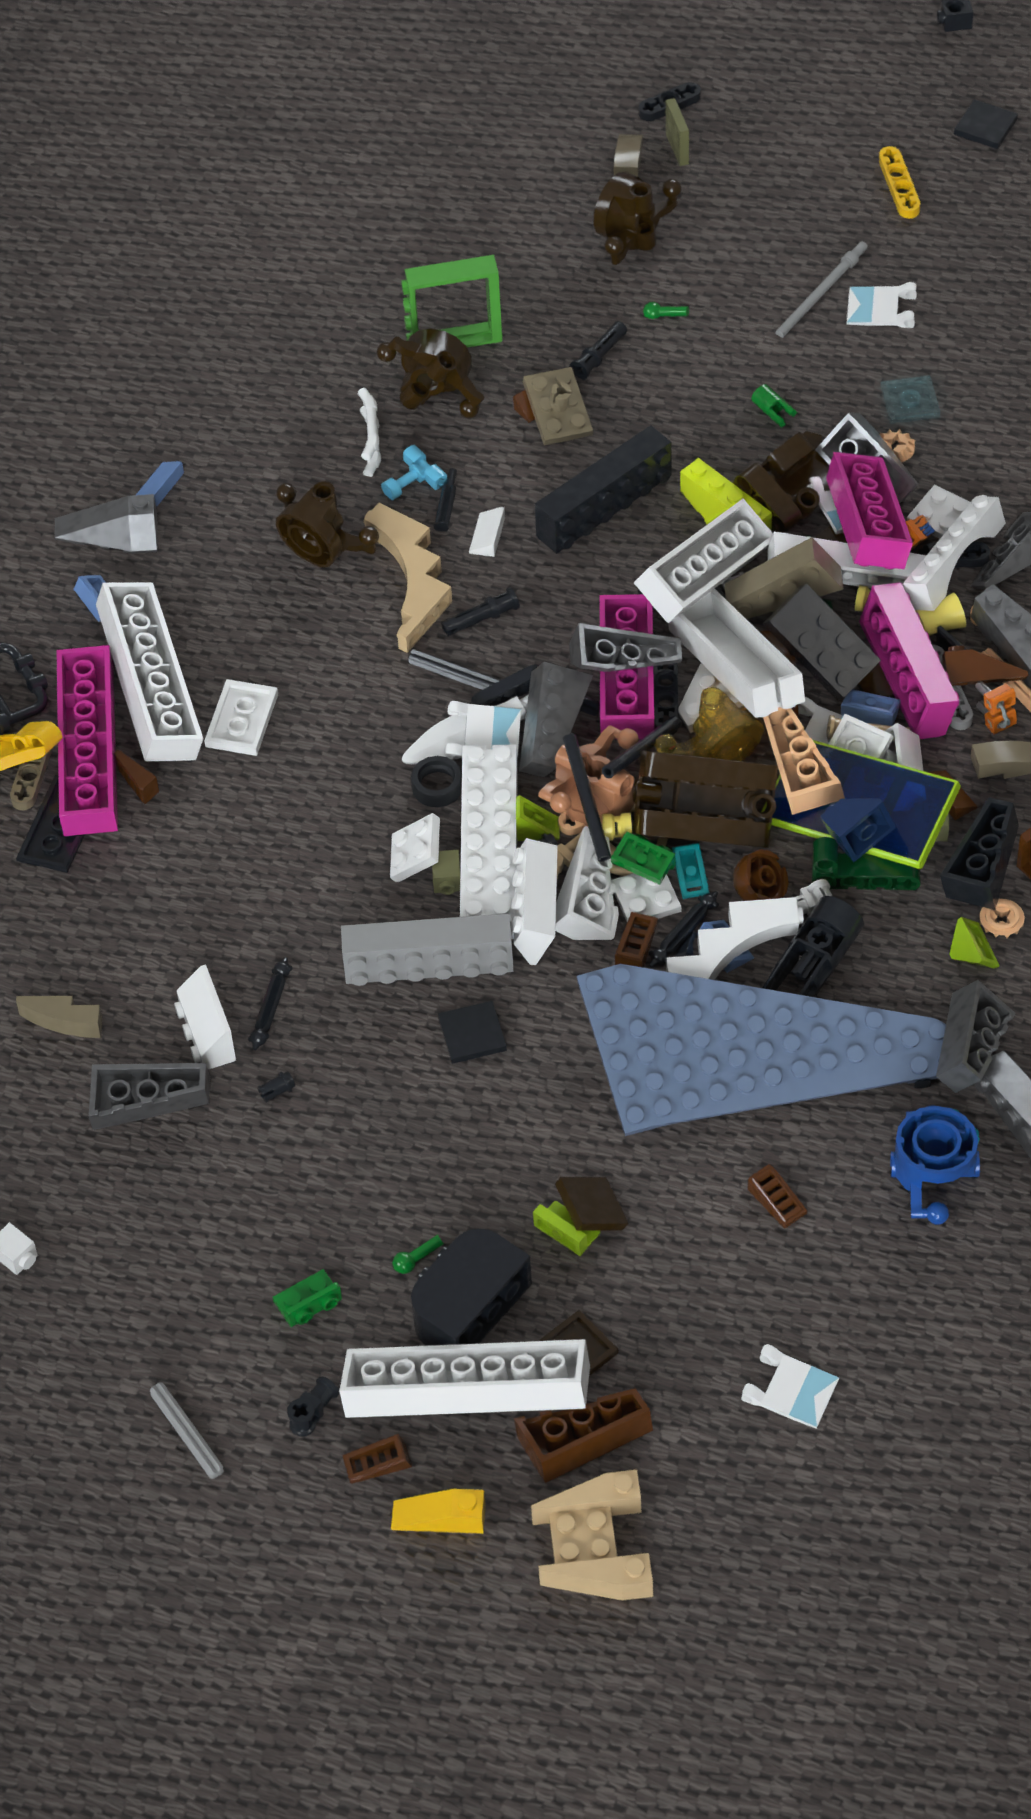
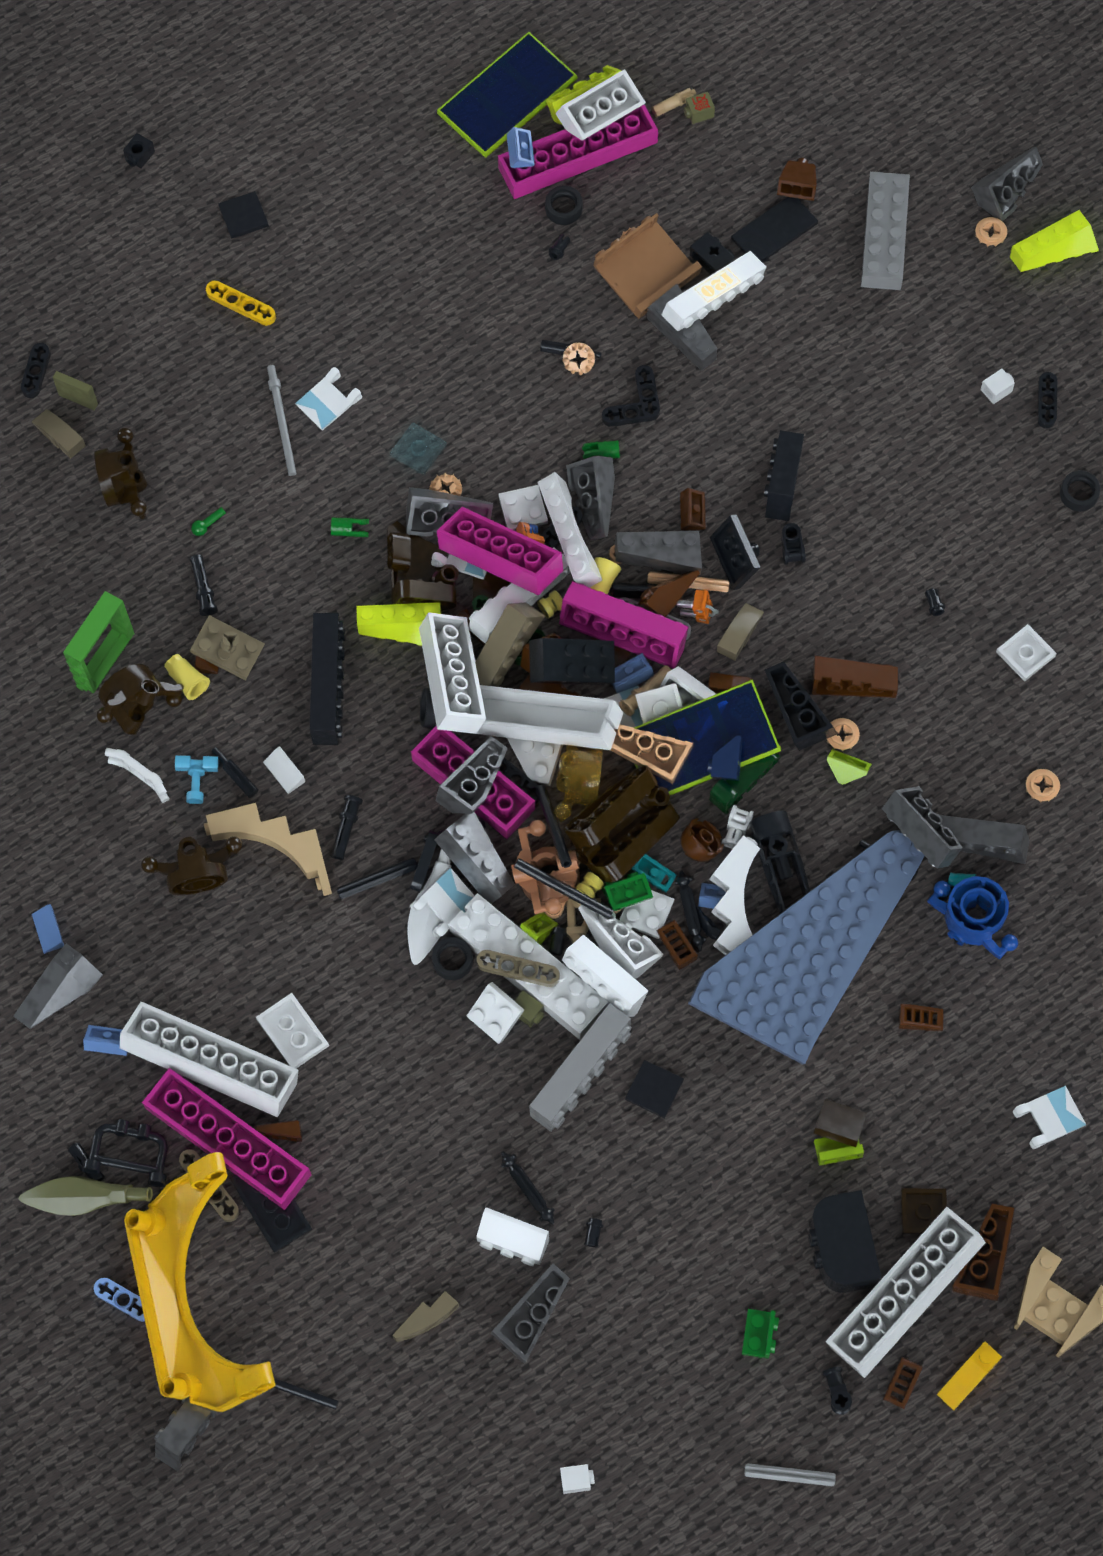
camera: 50 degrees left, 15 degrees up
(405, 1262) = (781, 1258): green bar -> none
(468, 824) = (517, 971): none -> dark tan beam
(498, 401) = (188, 676): none -> light yellow plant

